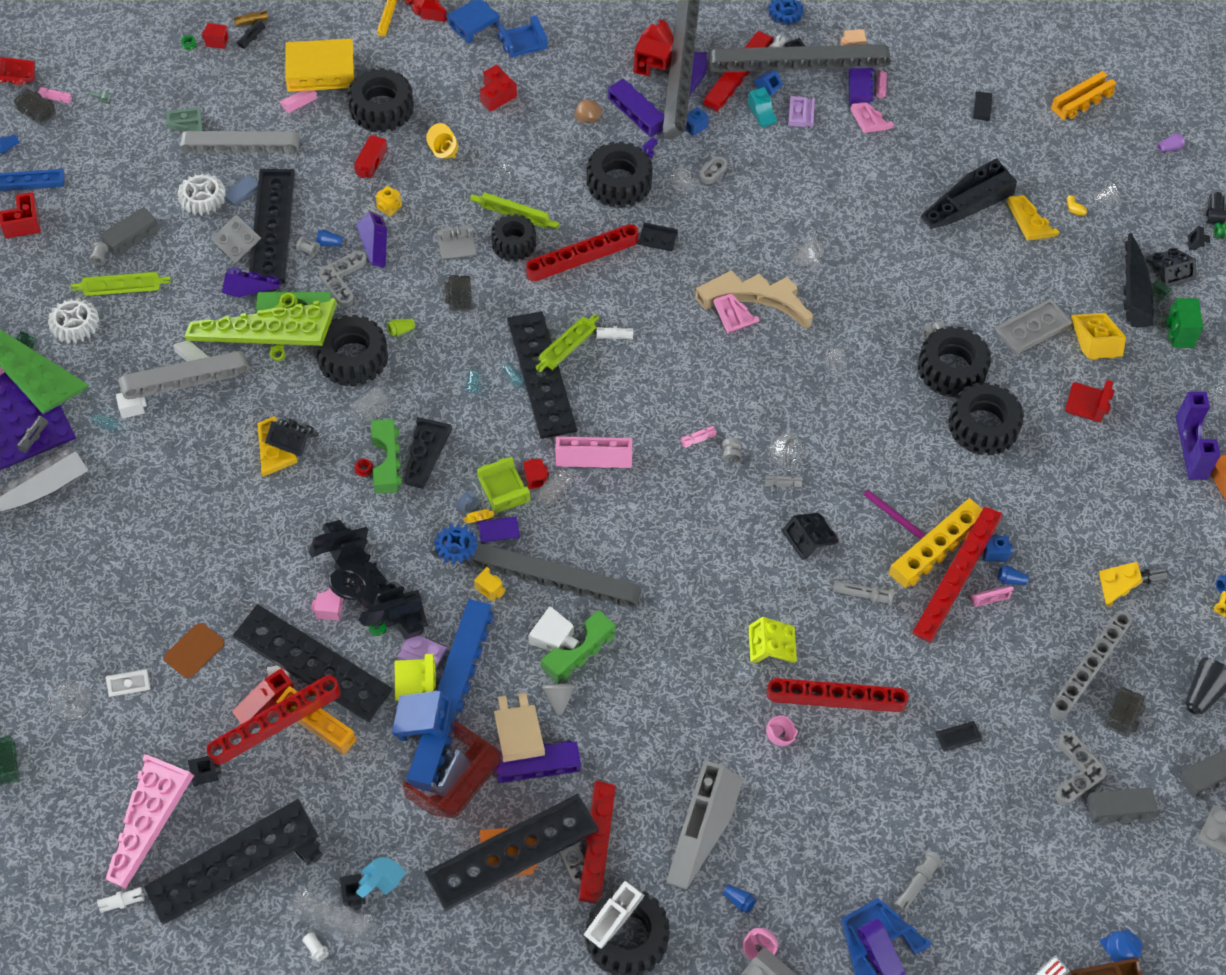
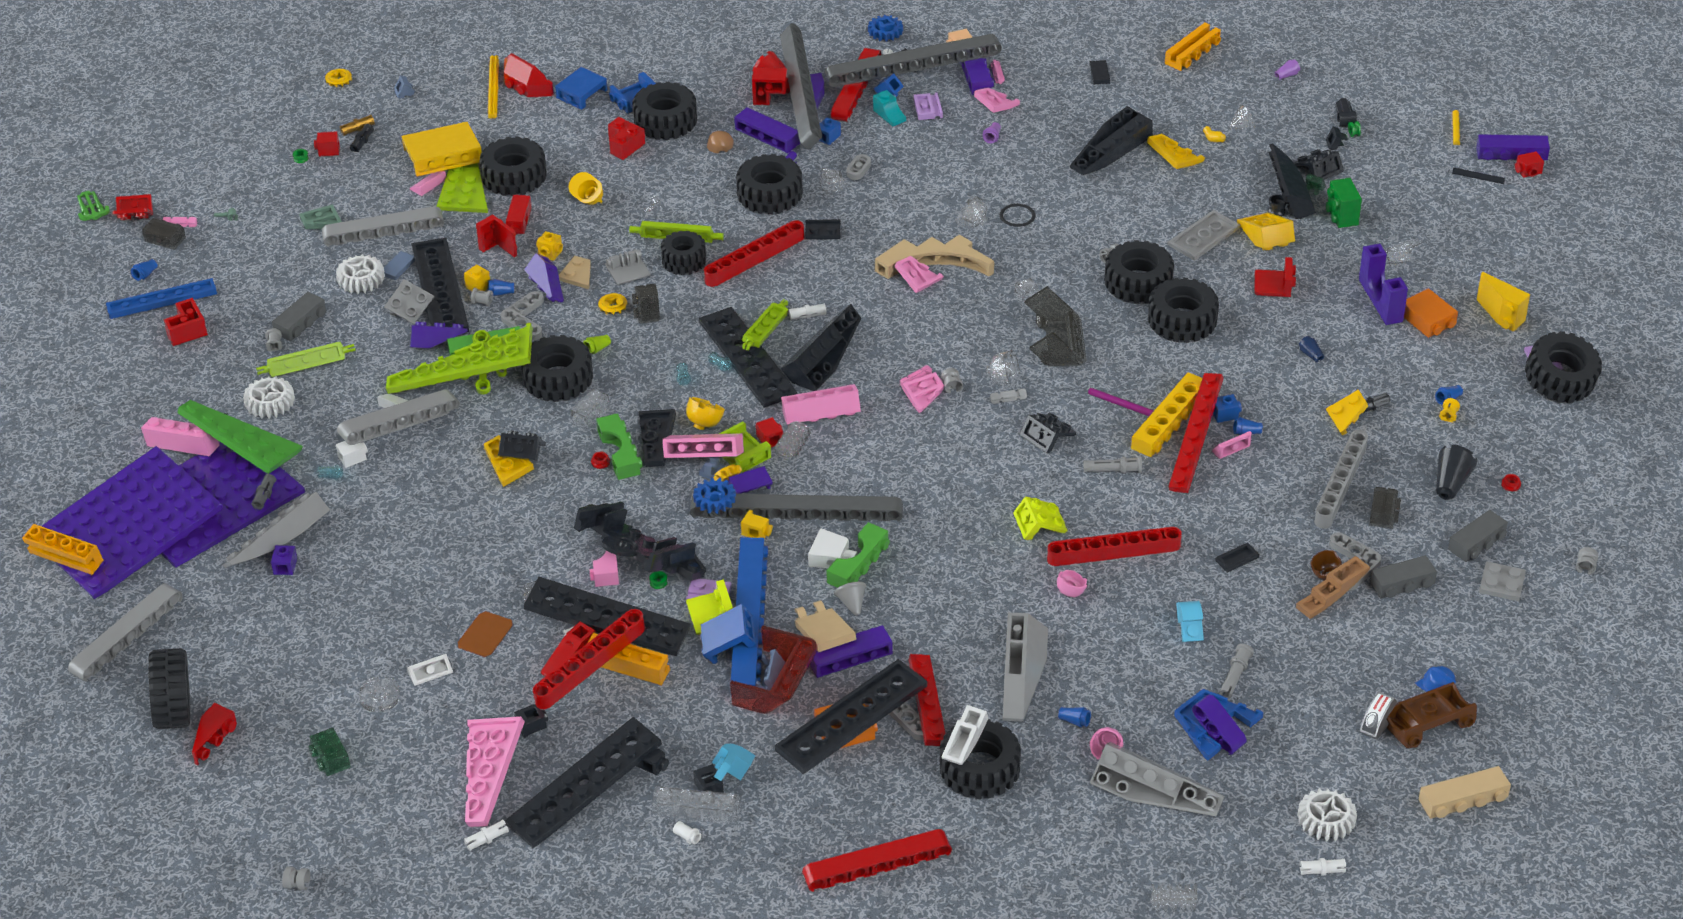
camera: 10 degrees left, 15 degrees down
(29, 518) = (284, 560): none -> dark purple brick
(308, 225) = (477, 278): none -> yellow brick
(327, 116) = (463, 190): none -> lime wing
(335, 175) = (495, 232): none -> red bracket
(407, 236) = (577, 272): none -> tan wing
(430, 274) = (606, 300): none -> yellow gear
(464, 478) = (703, 445): none -> bright pink brick
(477, 436) = (703, 413): none -> yellow cylinder
(543, 80) = (665, 110): none -> black tyre
(615, 387) = (823, 352): none -> black wedge
(701, 456) = (923, 390): none -> bright pink wing
(854, 158) = (991, 133): none -> medium lavender cone
(854, 273) = (1017, 225): none -> black piece
(859, 417) = (1063, 329): none -> clear smoke windscreen
(889, 807) = (1191, 618): none -> medium azure brick
(1045, 802) = (1333, 588): none -> medium nougat slope
(1050, 767) = (1326, 561): none -> reddish brown hair
(1104, 493) = (1311, 348): none -> dark blue cone
(1115, 309) = (1277, 205): none -> black wheel

